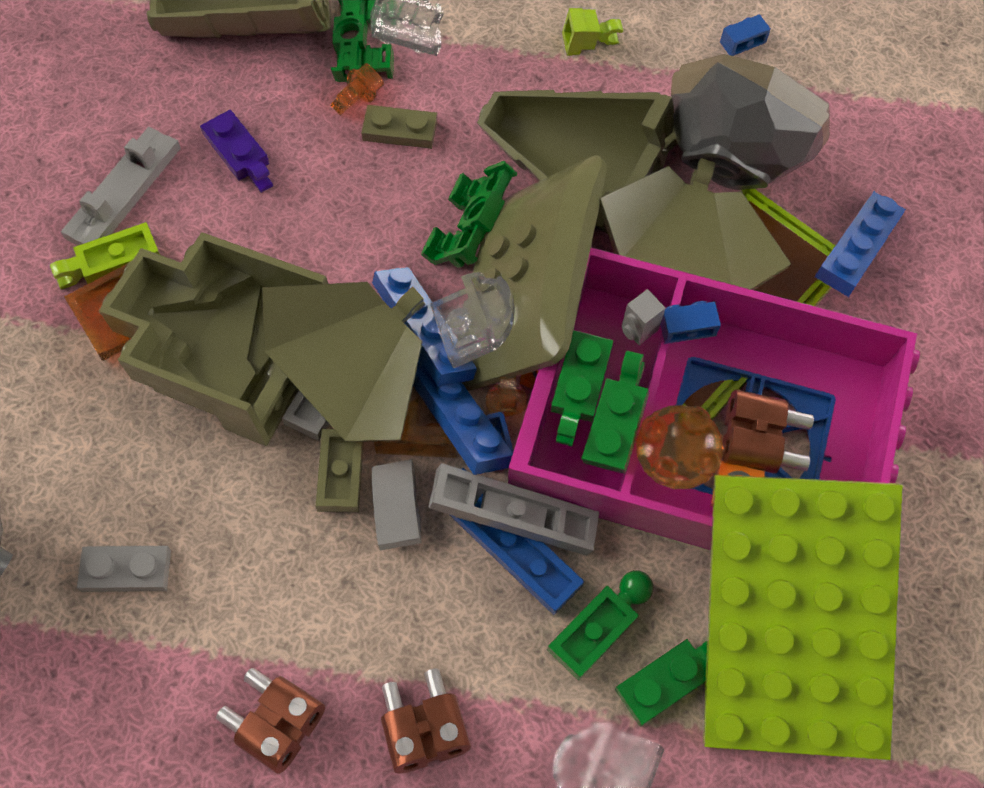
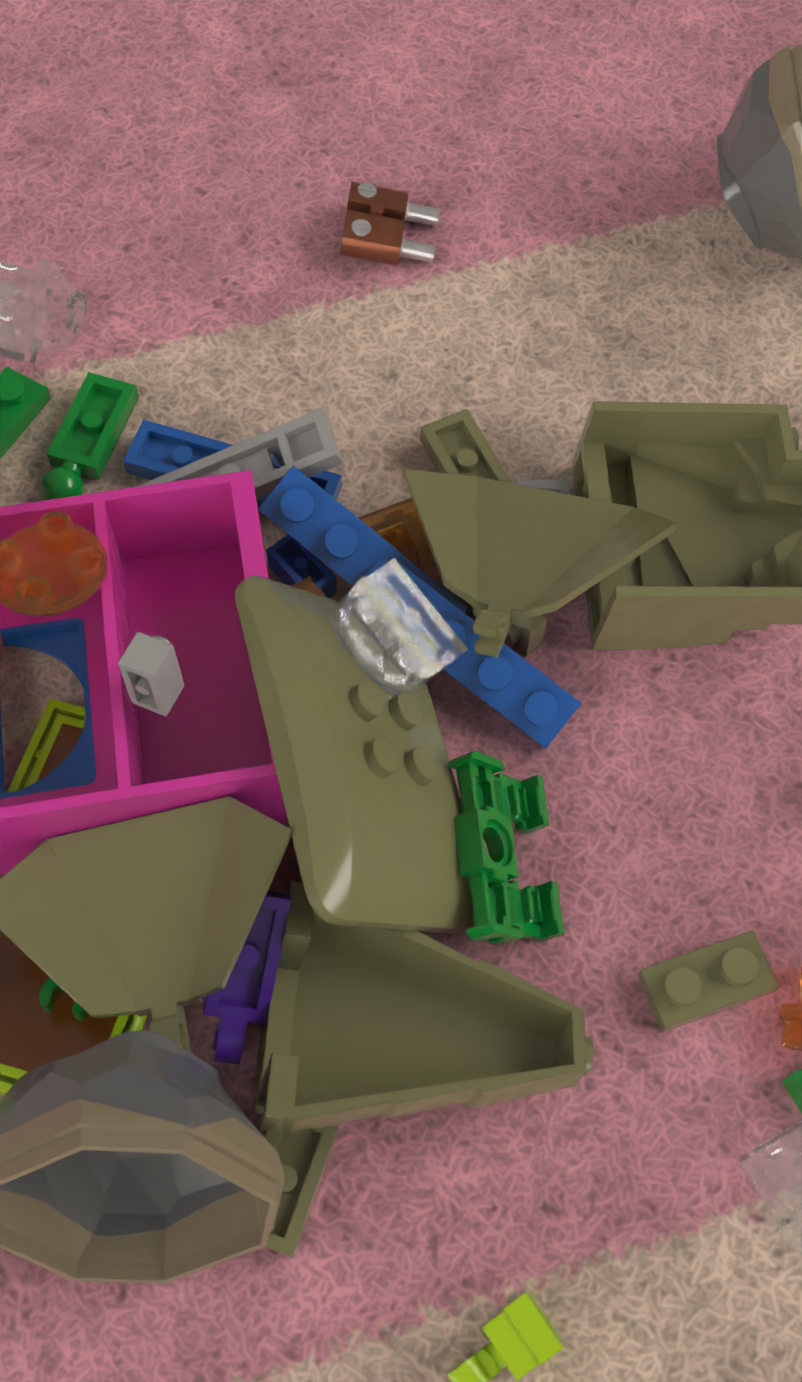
camera: 155 degrees right, 0 degrees up
(124, 568) = (626, 286): light grey plate -> none
(396, 505) = (379, 448): light grey slope -> none
(424, 731) = (227, 273): copper piece -> none
(580, 383) = (206, 591): green plate -> none
(618, 418) = (139, 563): green plate -> none
(690, 322) = (88, 713): blue piece -> none

